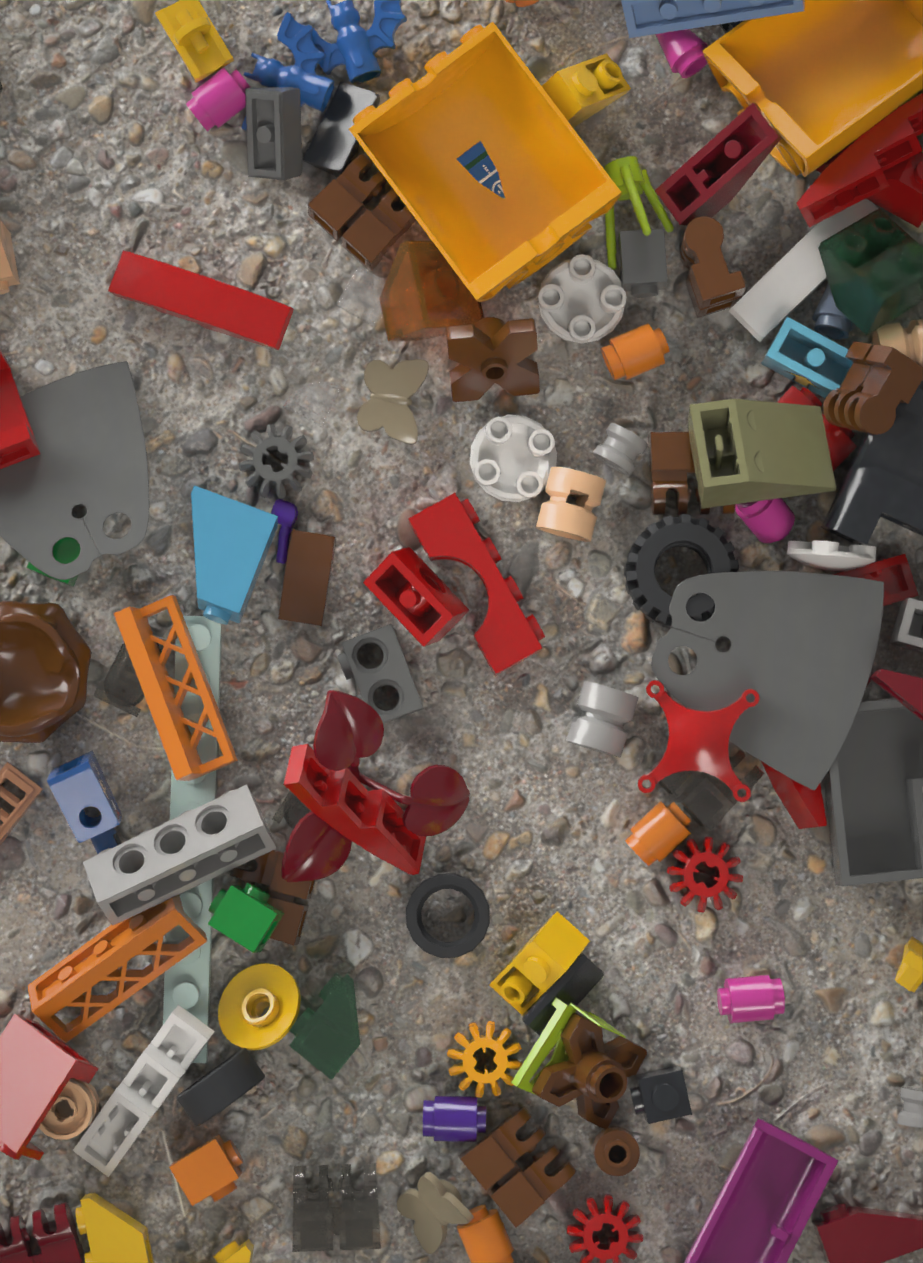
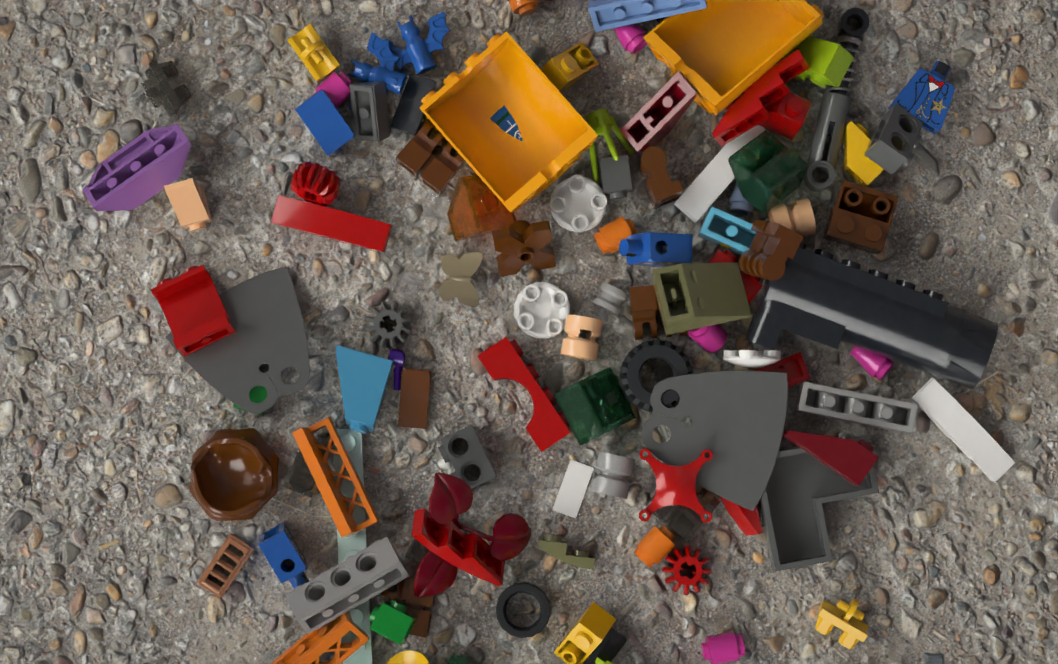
camera: 10 degrees left, 0 degrees up
(181, 236) = (315, 183): none -> red gear
(204, 145) = (325, 123): none -> blue panel
(416, 596) = (486, 405): red brick -> none
(503, 822) = (553, 546): none -> olive slope
(539, 736) = (573, 488): none -> white sticker
(583, 610) = (595, 406): none -> clear green slope
(682, 375) = (647, 249): none -> blue torso

